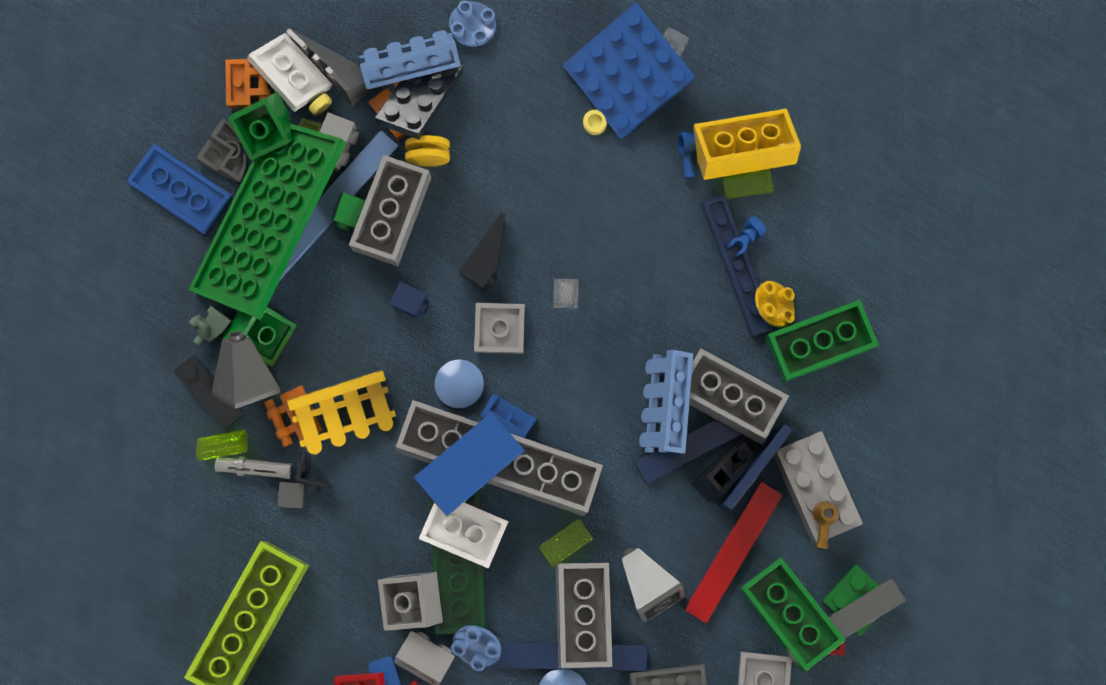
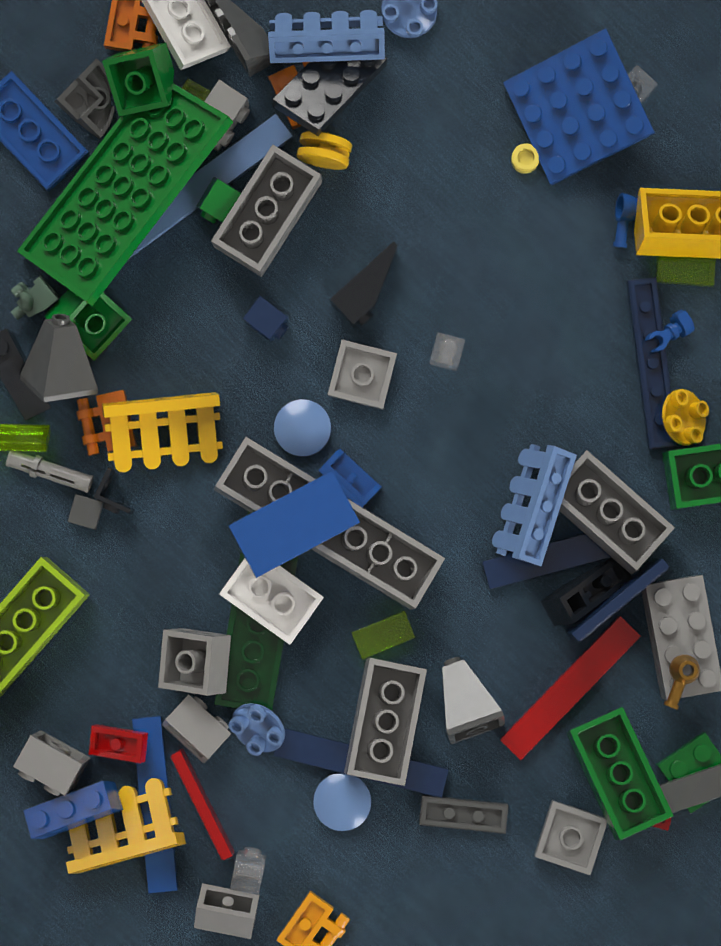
camera: 15 degrees right, 5 degrees up
(320, 104) = (212, 68): light yellow tile -> none

